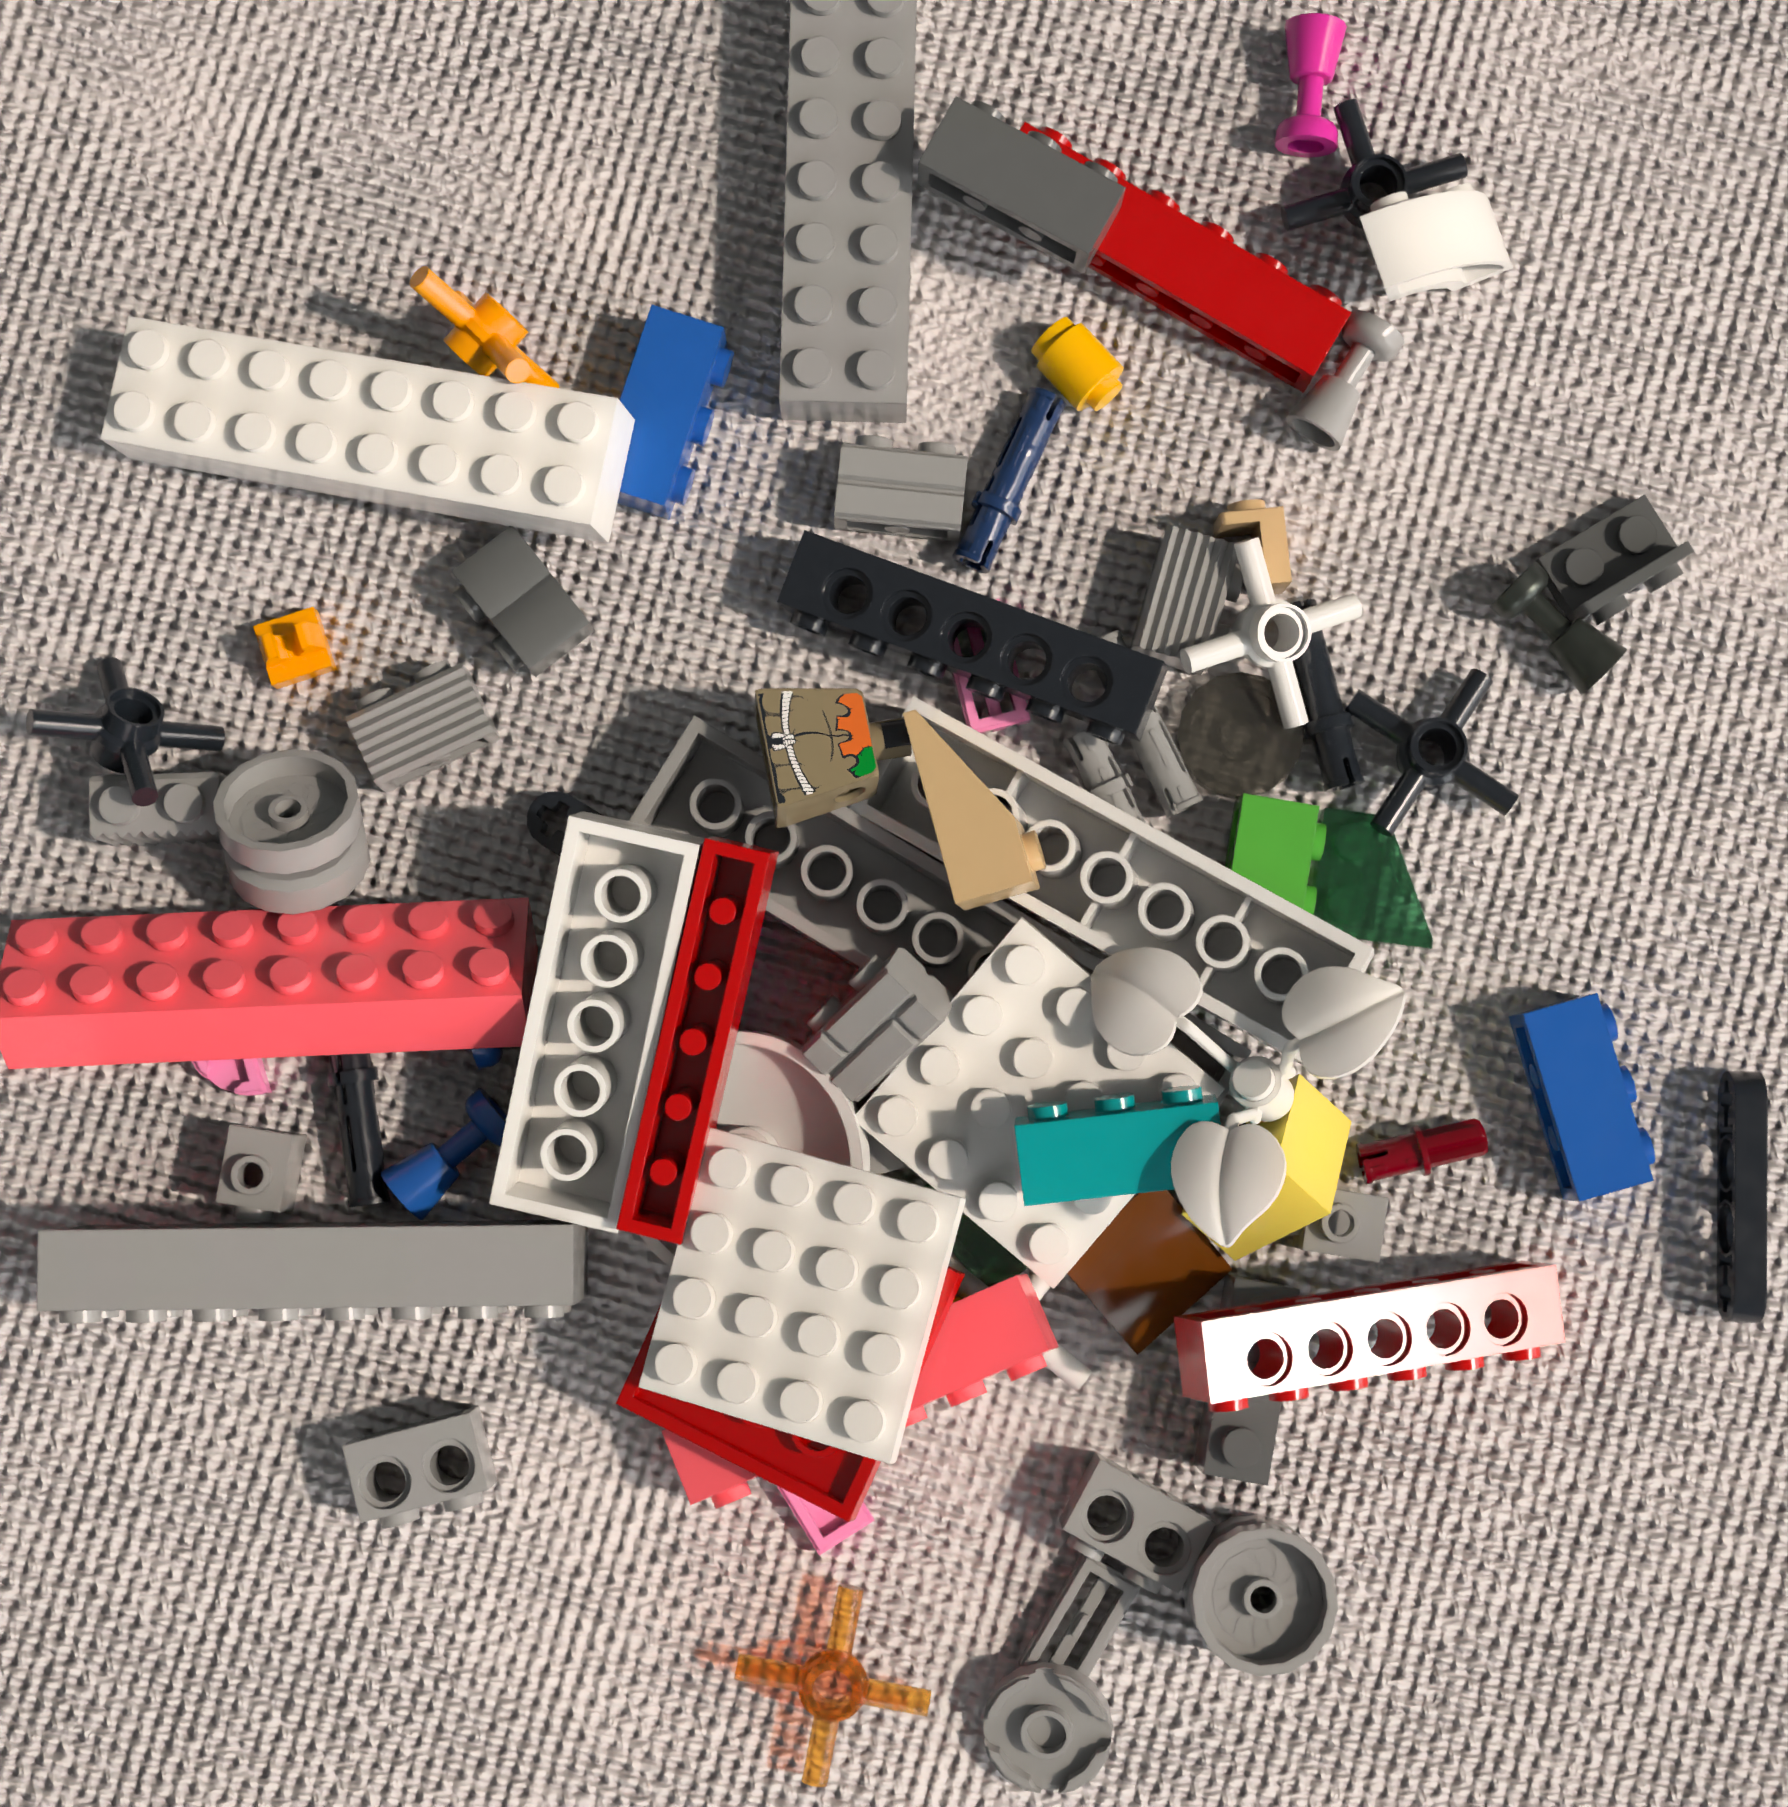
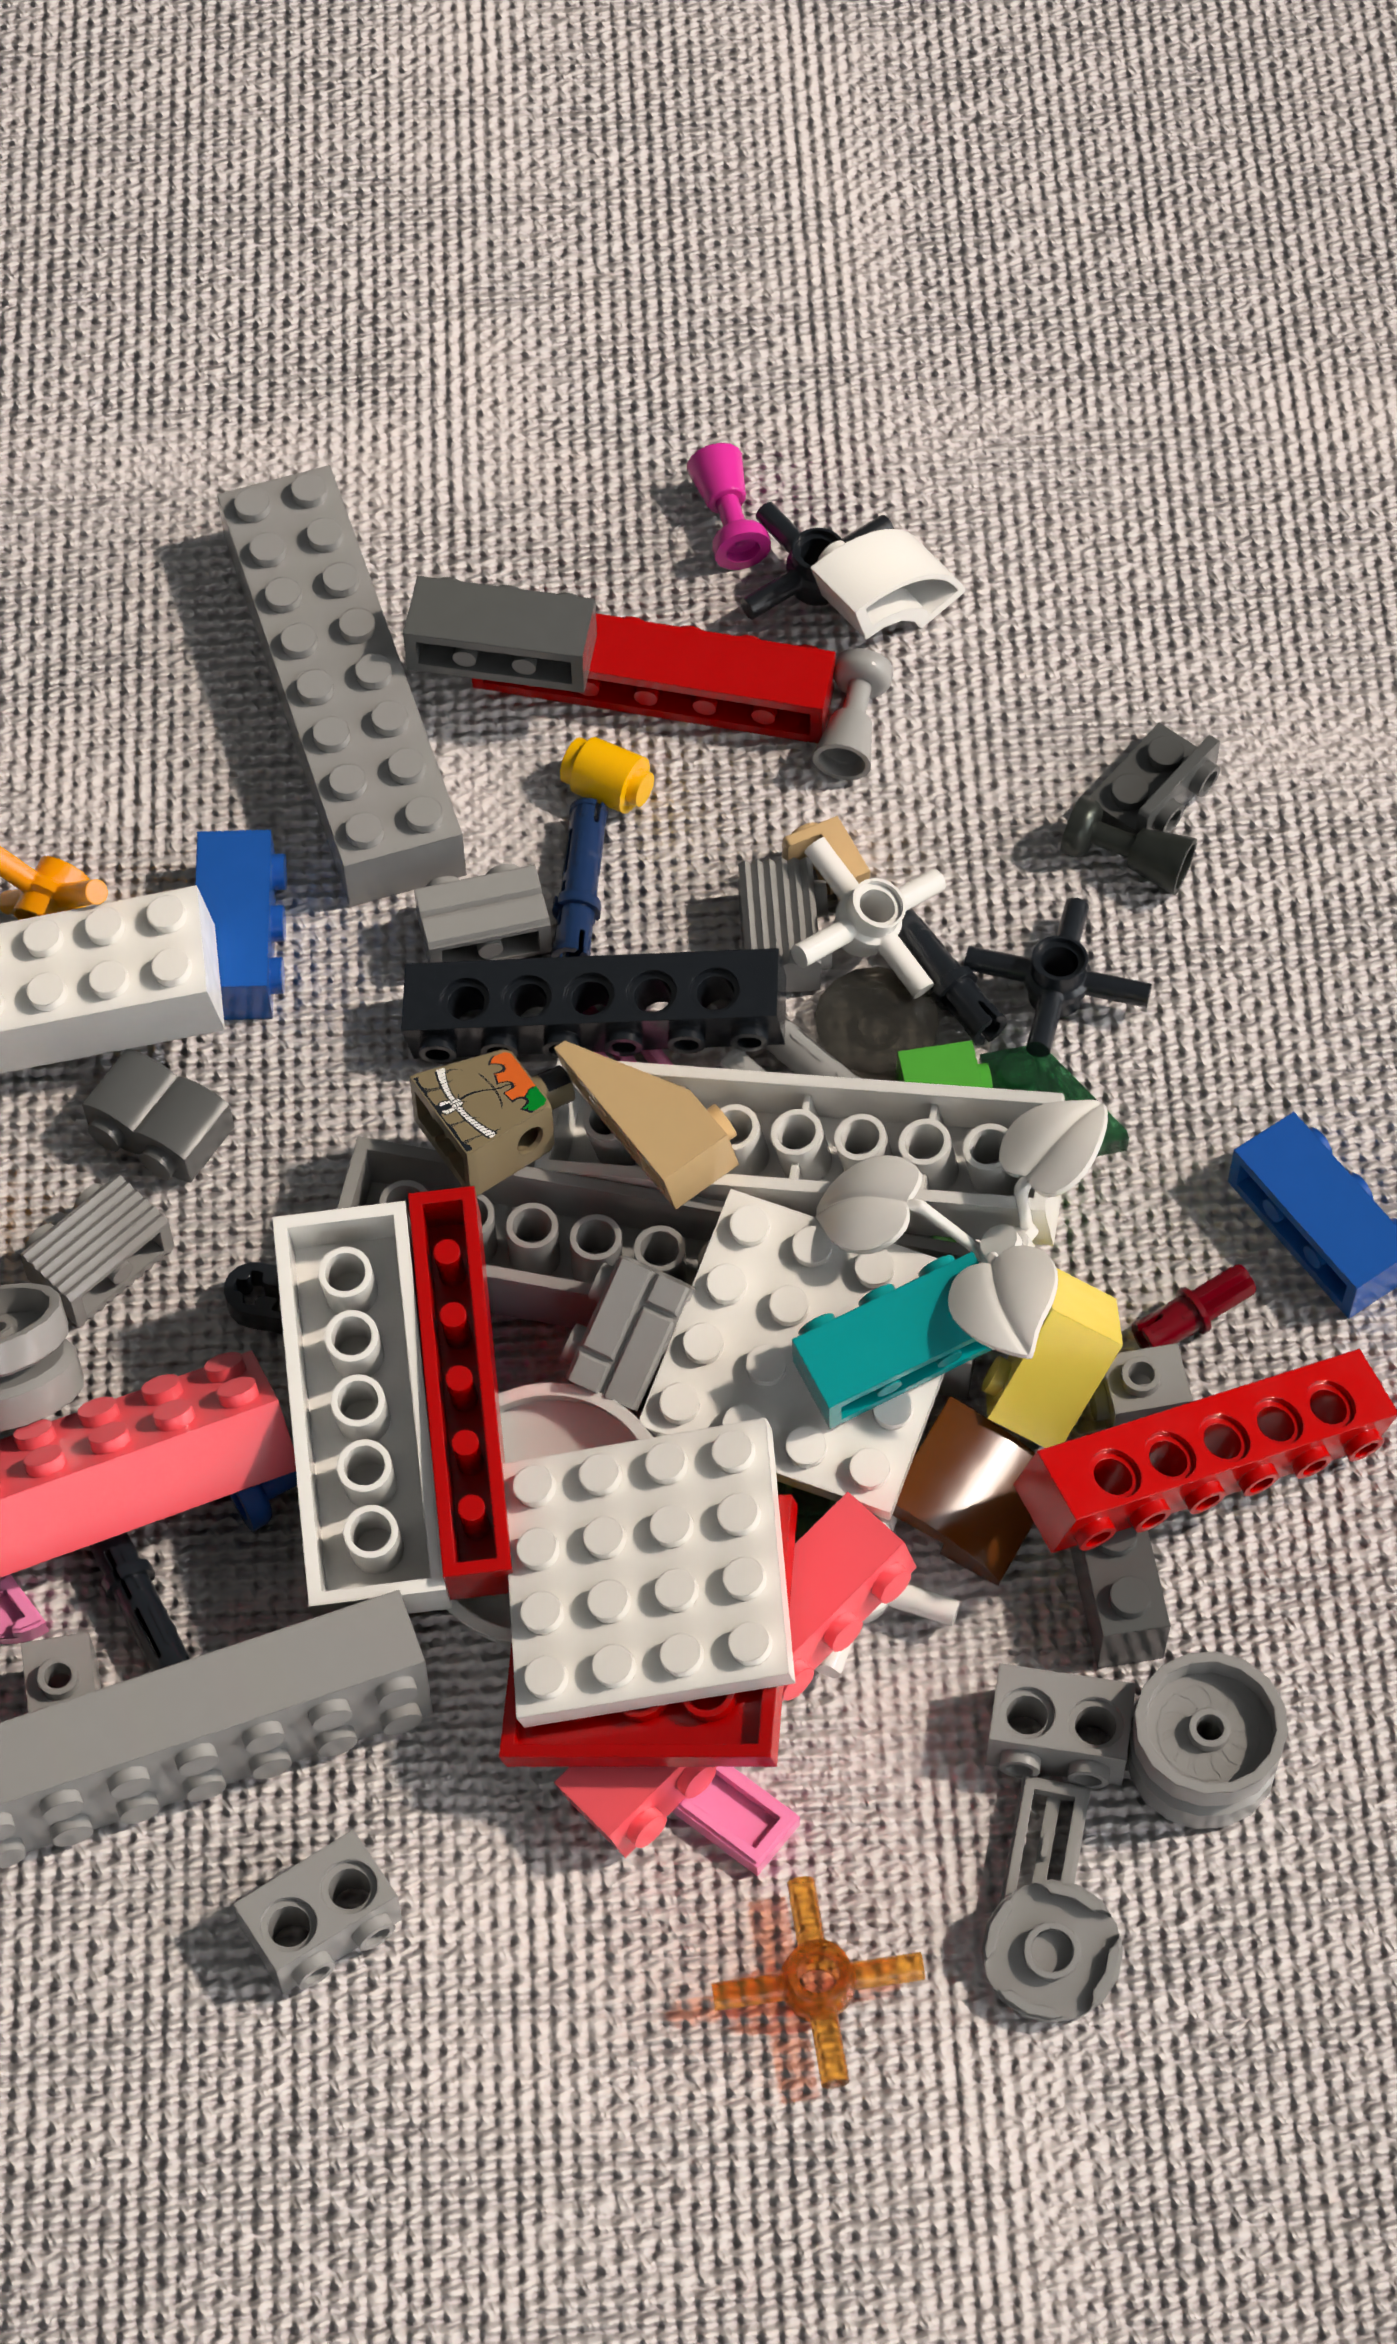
camera: 15 degrees left, 25 degrees down
(430, 1171) = (278, 1572): blue piece -> none

